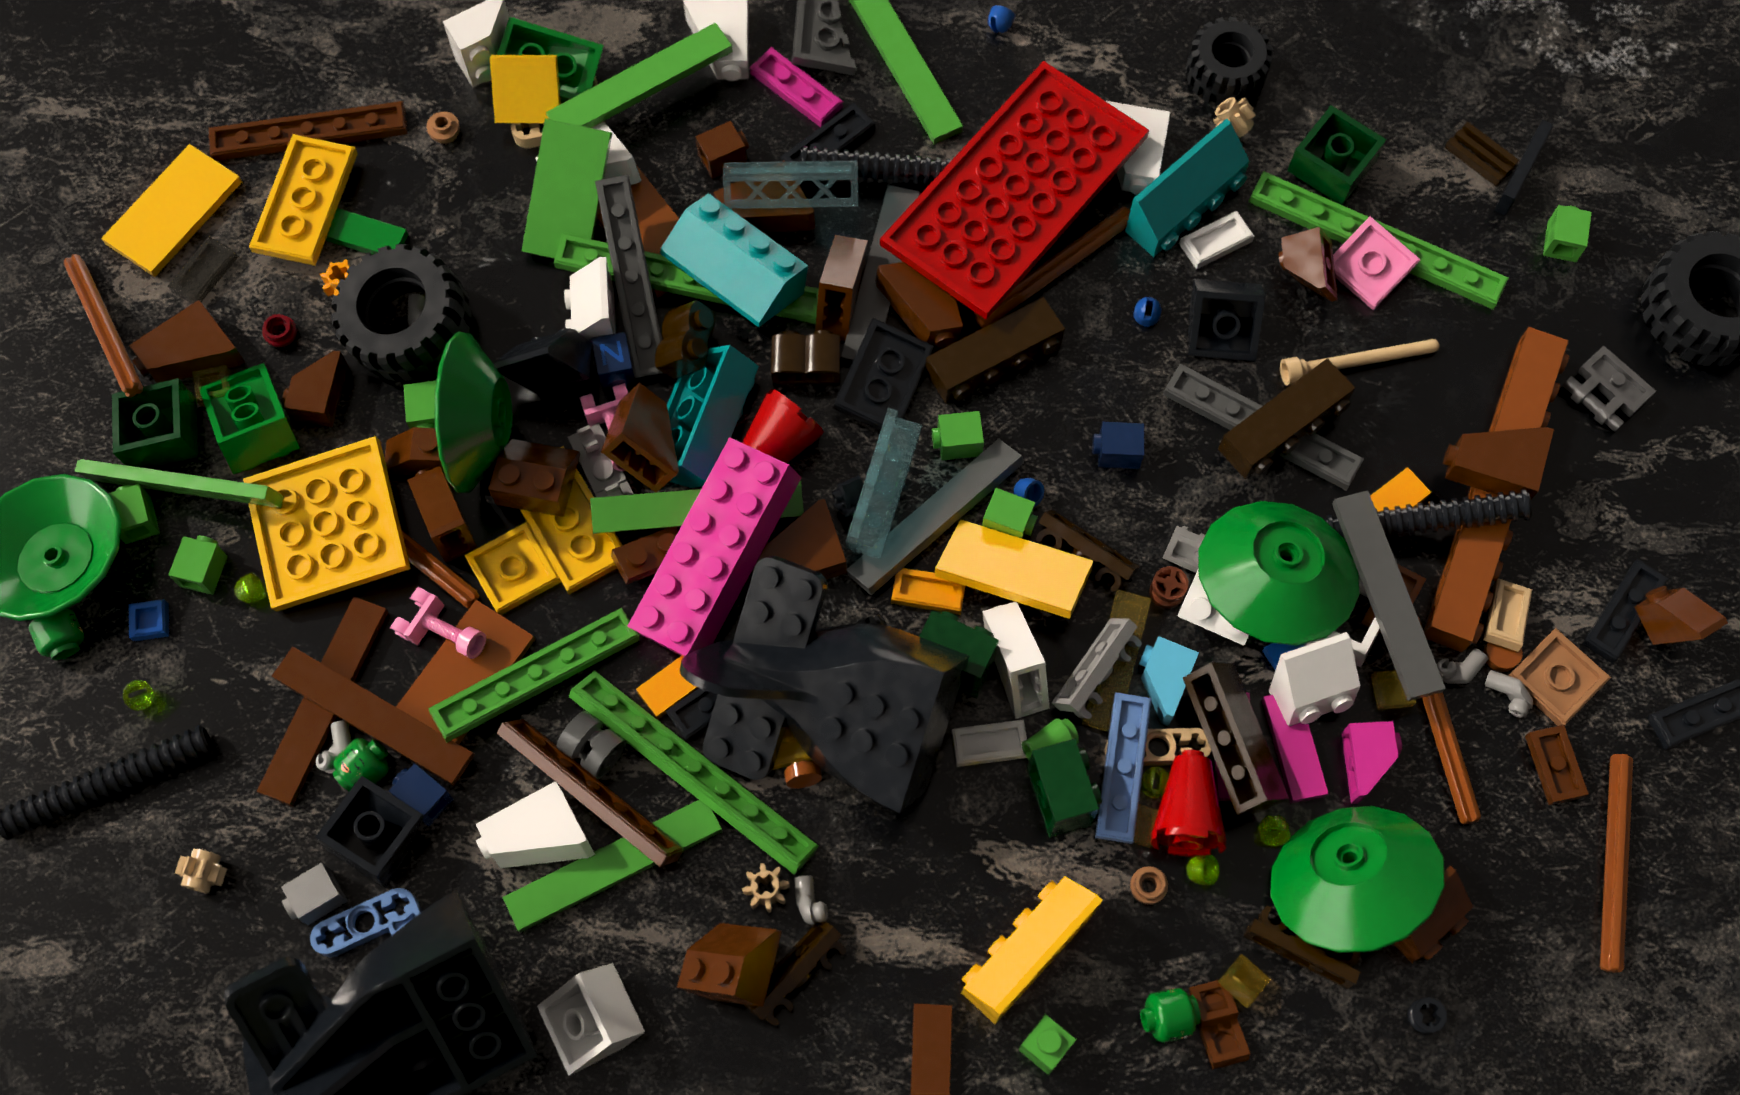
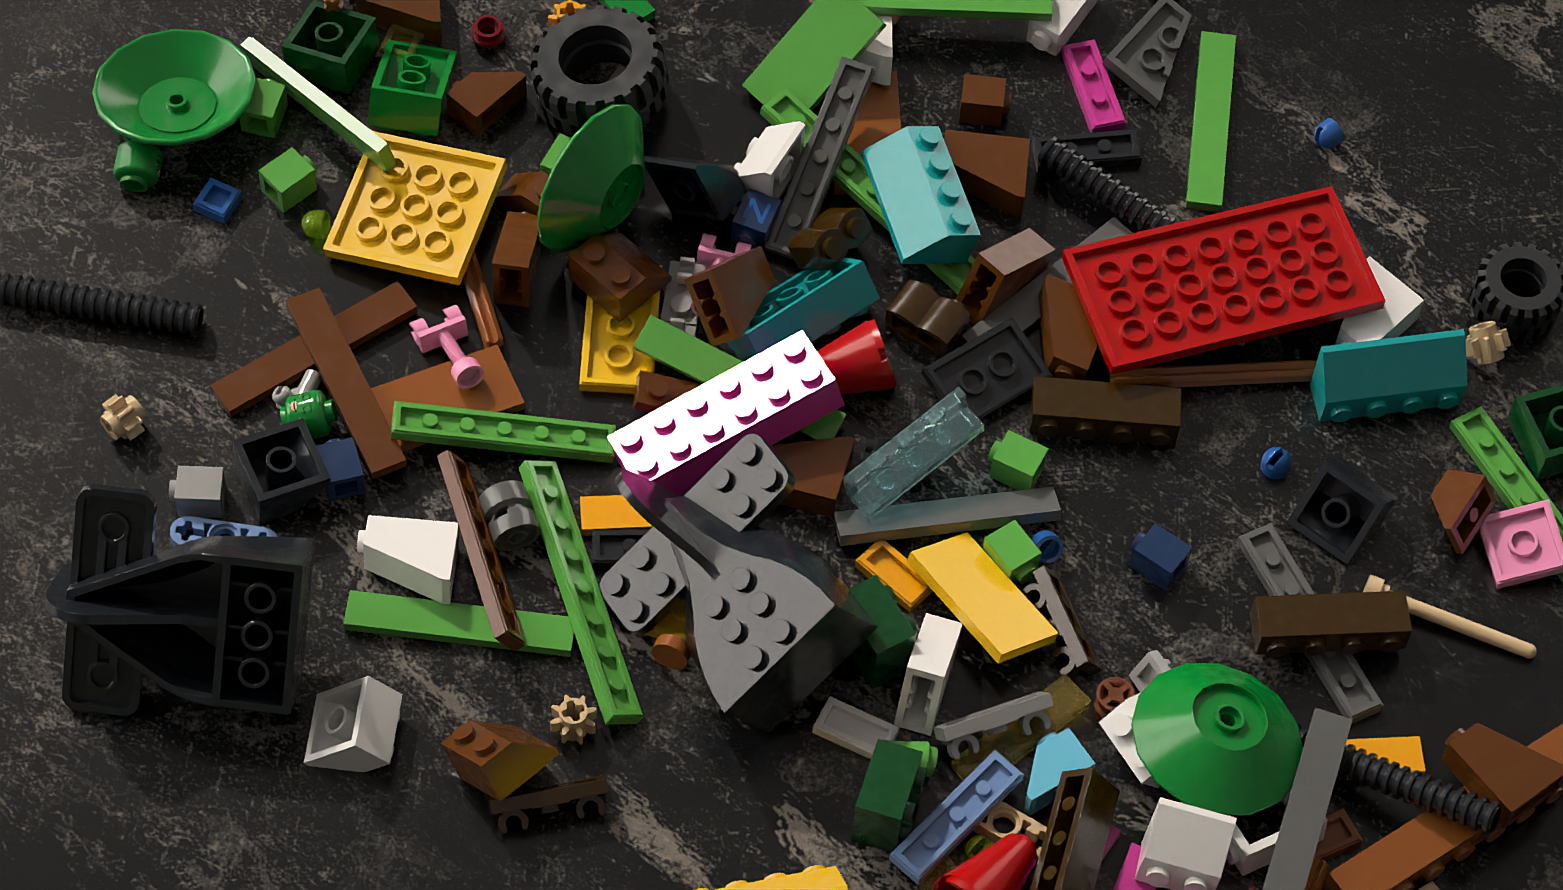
camera: 30 degrees right, 10 degrees down
(140, 701) = (167, 260): clear neon green hinge -> none
(512, 568) = (546, 340): yellow tile -> none
(790, 171) = (1024, 148): clear light blue fence -> none
(805, 901) = (600, 757): light grey arm -> none
(1216, 240) = (1390, 440): white tile -> none

